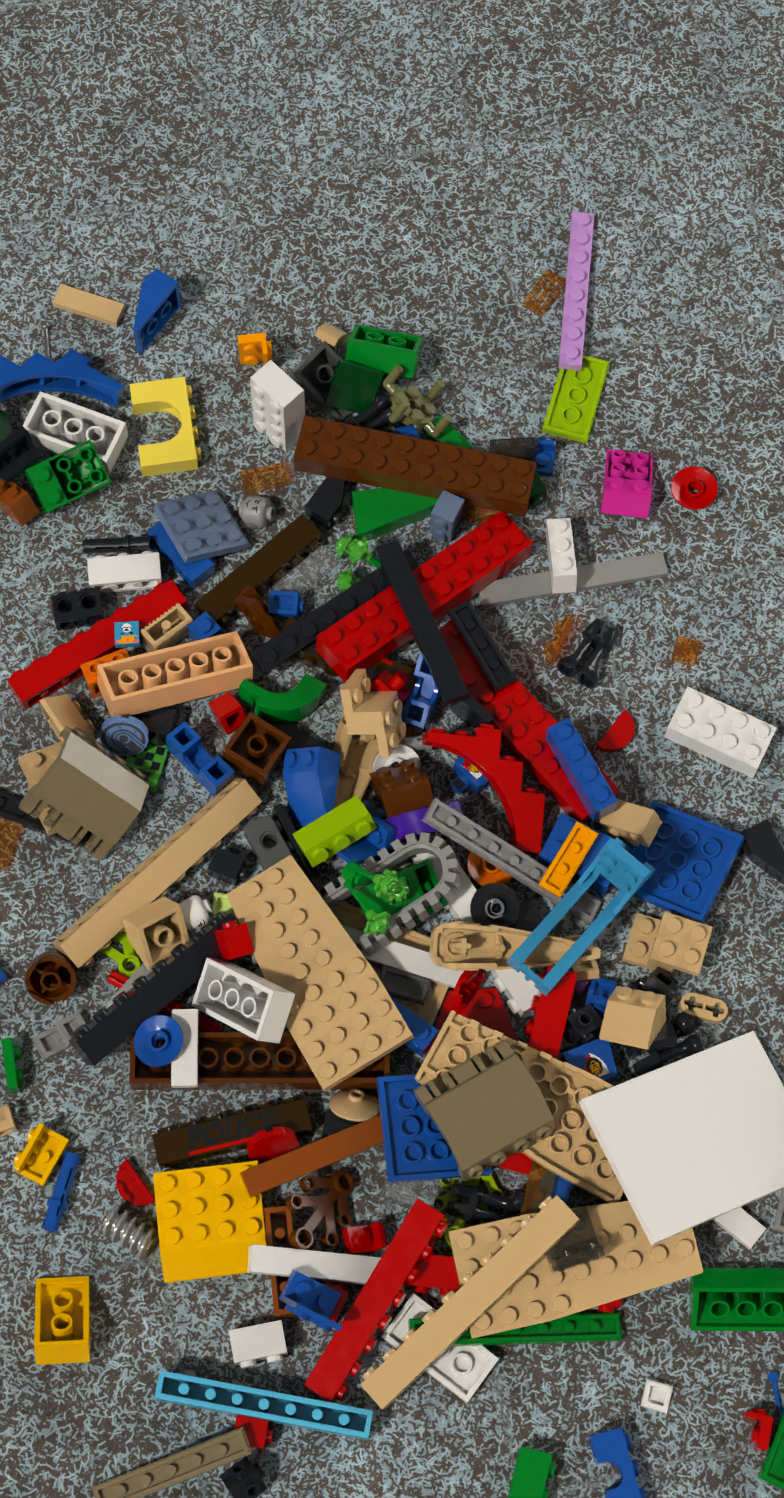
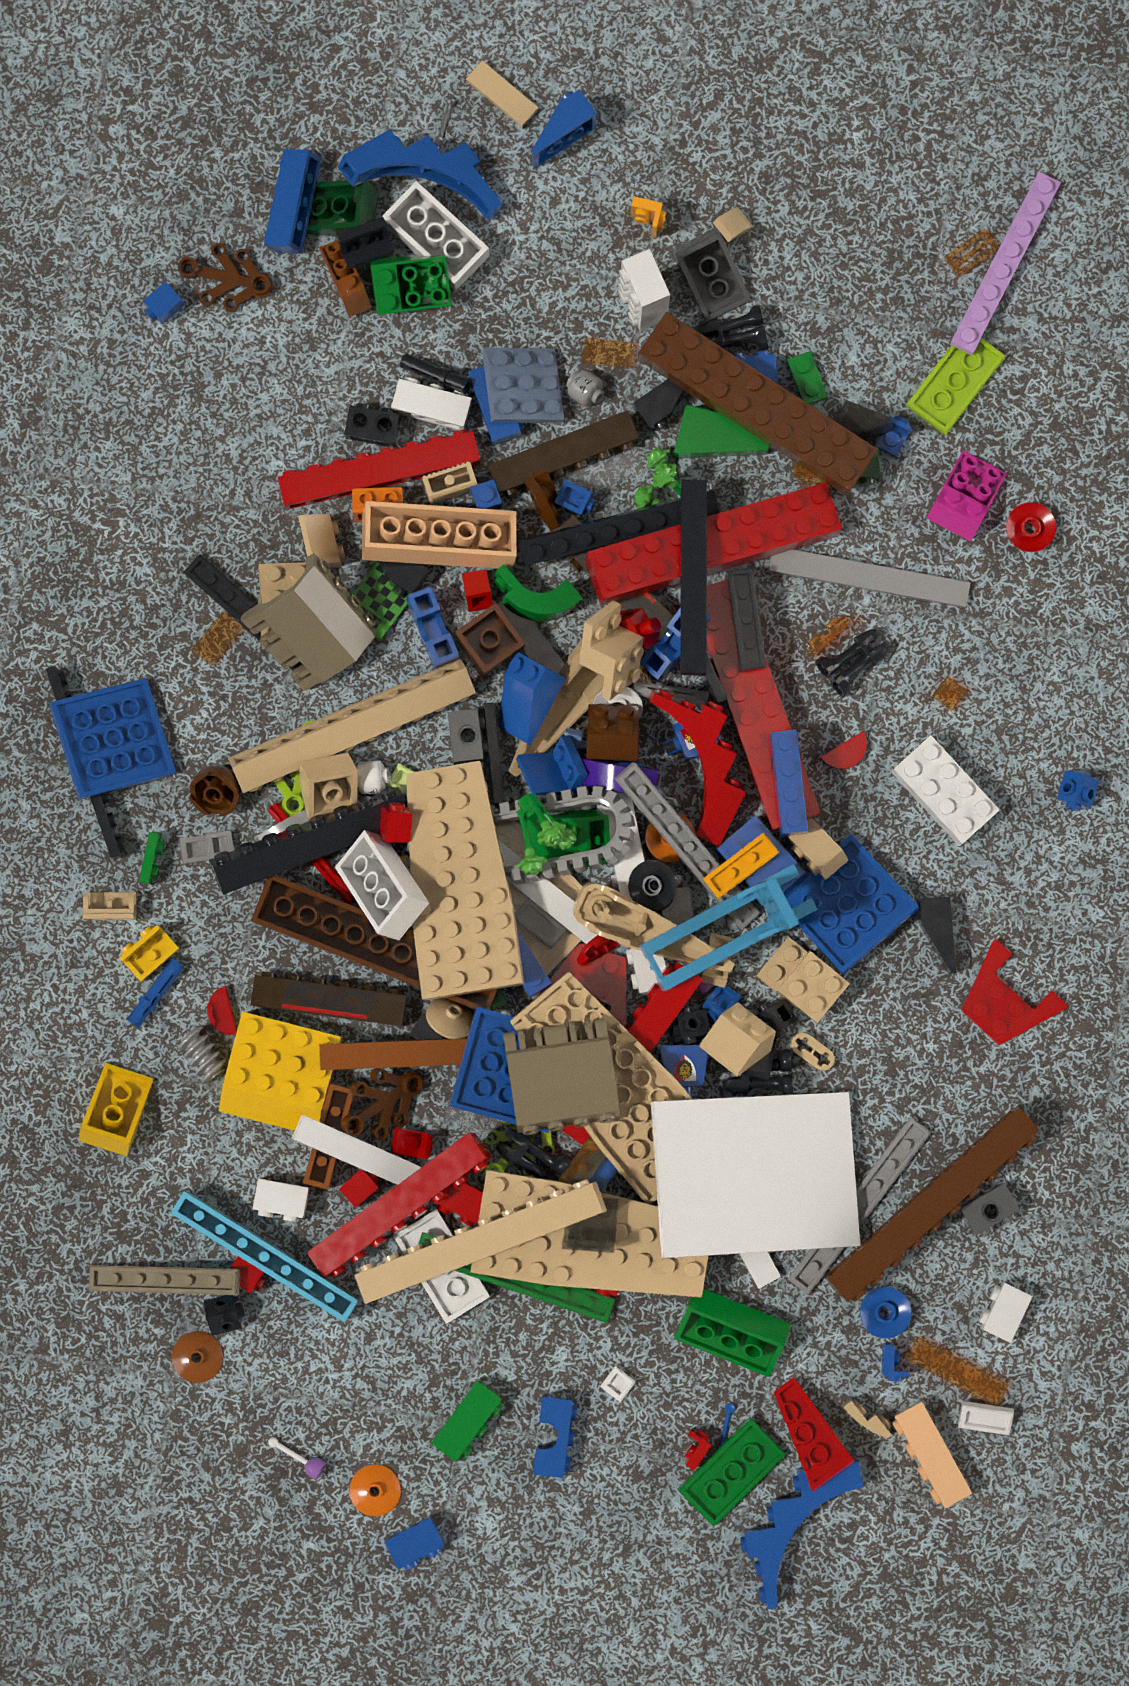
camera: 25 degrees right, 15 degrees up
(124, 735) = (368, 578): tile -> none
(127, 634) = (408, 474): dark azure tile -> none
(148, 1038) = (279, 892): blue dish -> none
(179, 452) = (535, 294): light yellow arch -> none
(185, 1067) = (312, 908): white tile -> none
(227, 867) = (420, 744): black brick -> none
(272, 1144) = (359, 1028): red tile -> none
(310, 1300) = (338, 1185): blue bracket -> none
(334, 831) = (529, 754): lime brick -> none
(353, 386) = (730, 292): dark green tile -> none
(384, 350) = (777, 263): green brick -> none
(412, 407) = (791, 331): olive plate -> none
(446, 516) = (768, 467): sand blue brick -> none
(561, 555) = (866, 551): white brick -> none

